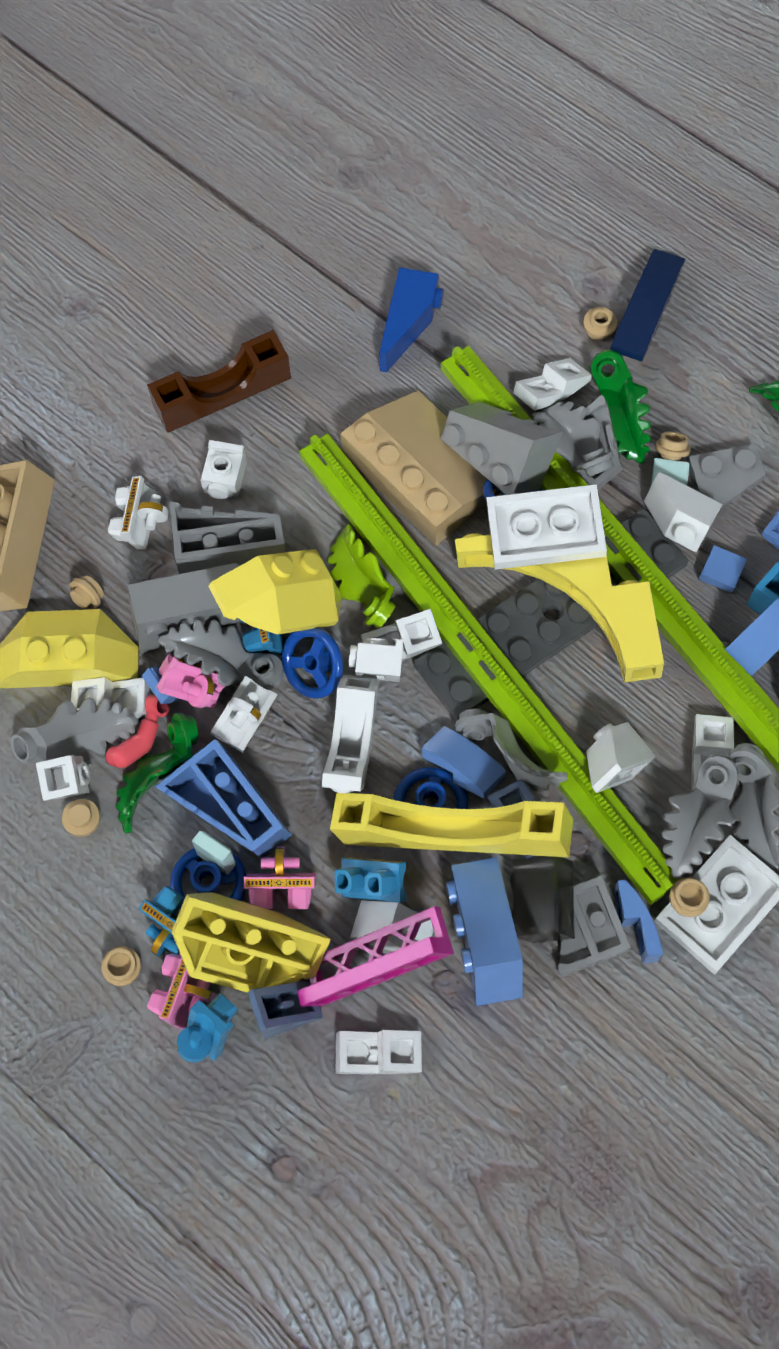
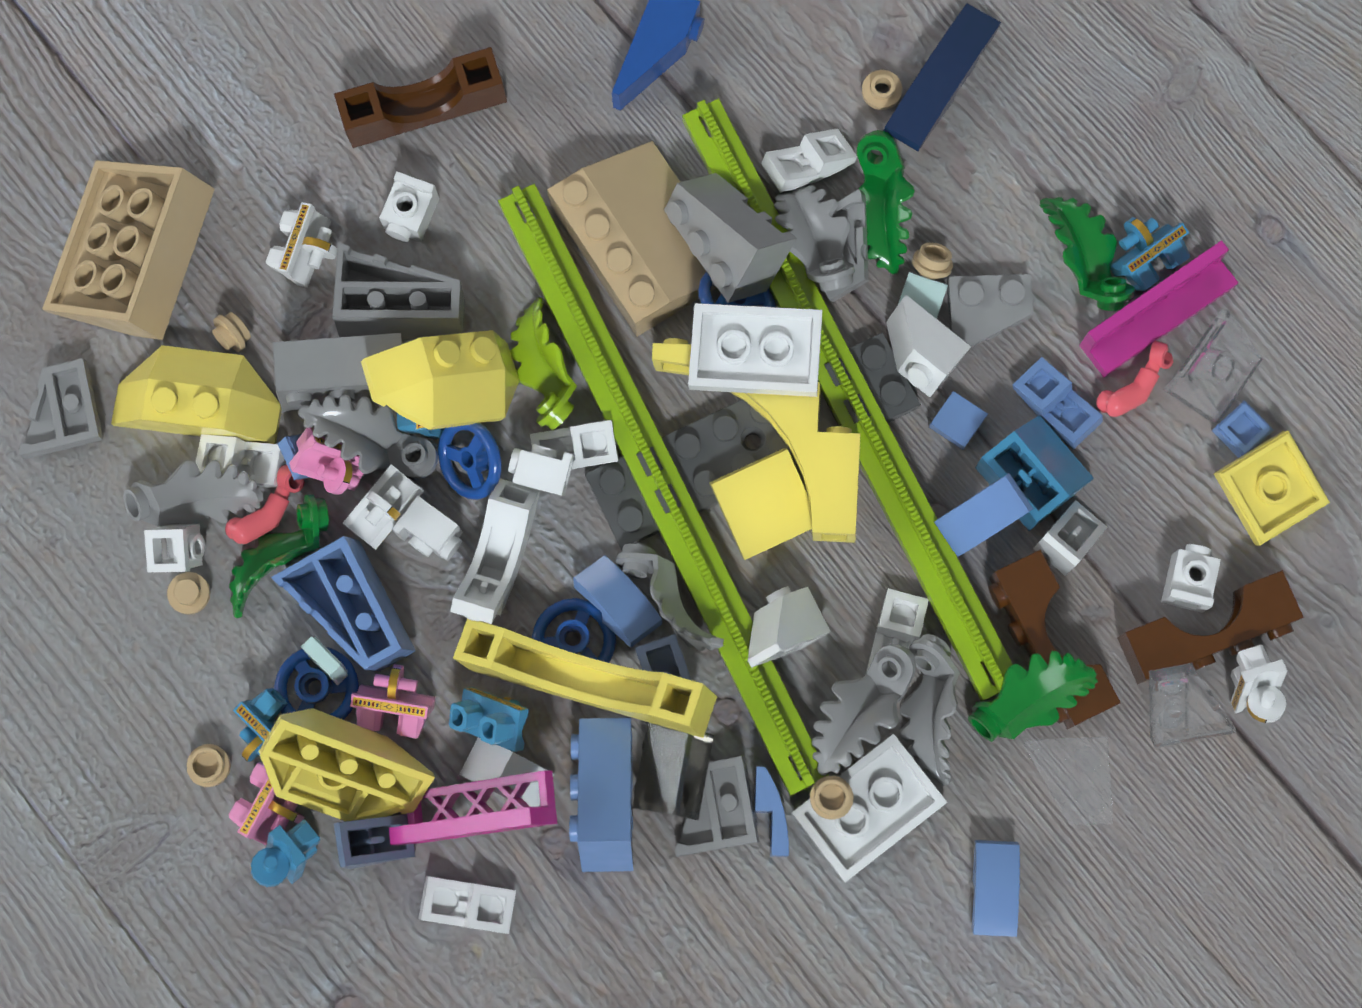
camera: 10 degrees right, 10 degrees up
(286, 728) = (429, 530): none -> white brick
(574, 660) = (764, 503): none -> light yellow tile

